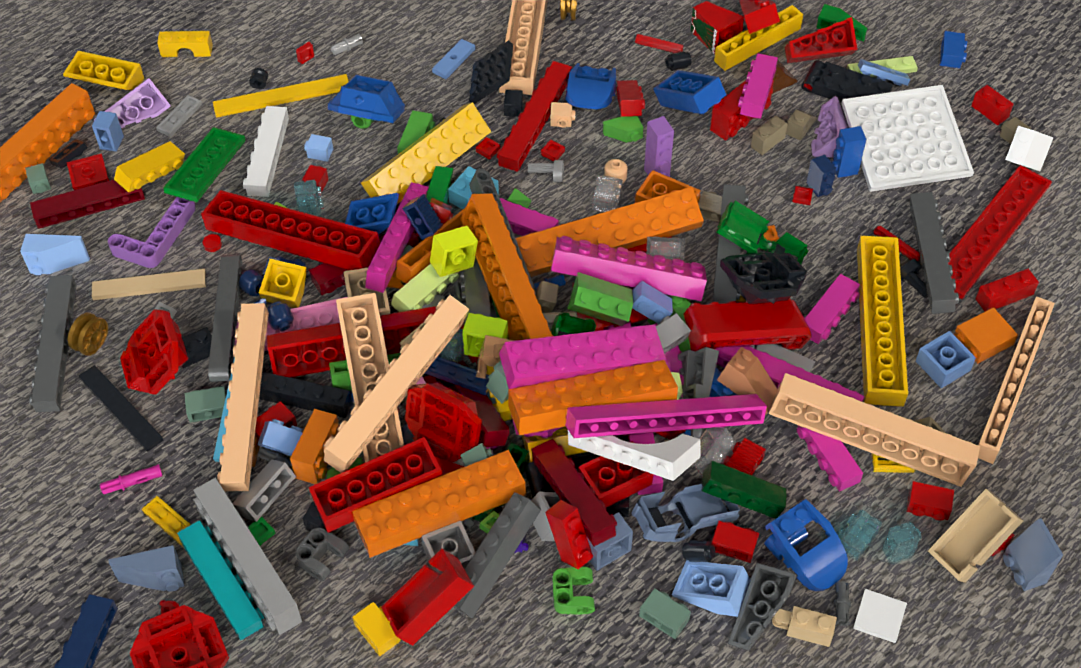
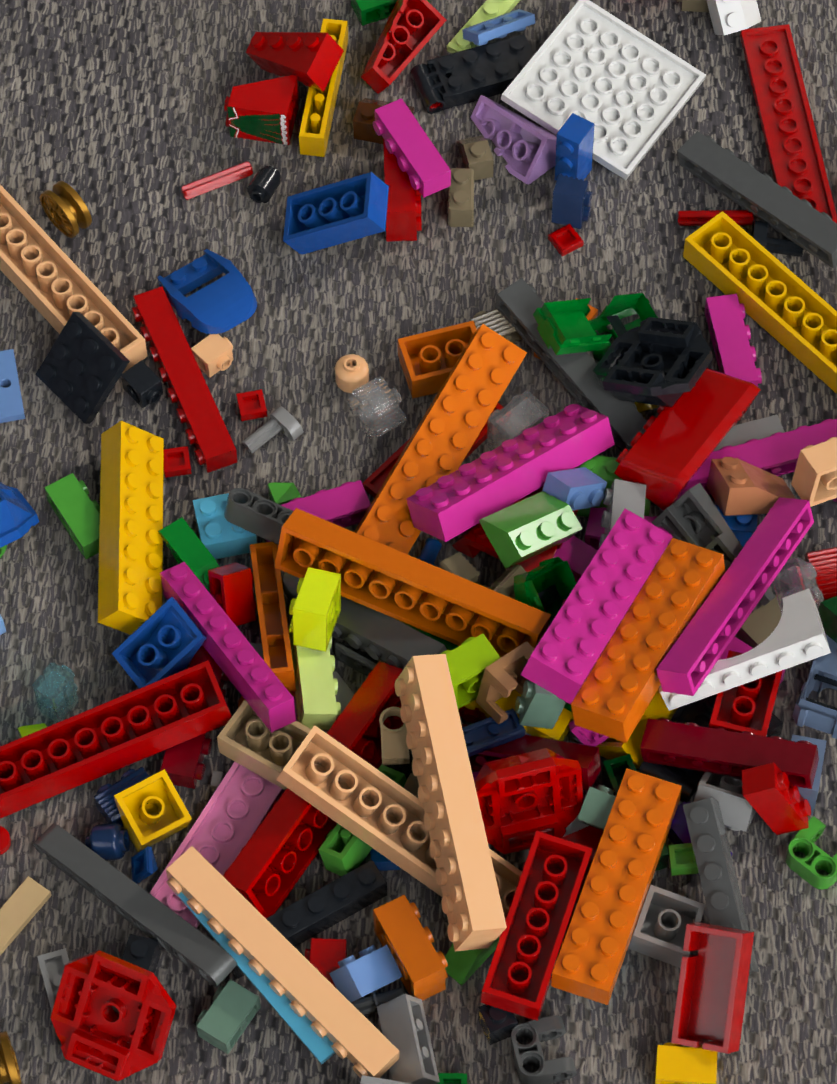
camera: 45 degrees left, 5 degrees up
(279, 316) = (200, 841): dark blue head -> none
(318, 174) = (25, 662): red brick -> none
(422, 216) = (234, 600): dark blue brick -> none
(624, 128) = (301, 314): bright green slope -> none
(630, 98) = (273, 273): red brick -> none
(659, 146) = (387, 308): medium lavender brick -> none

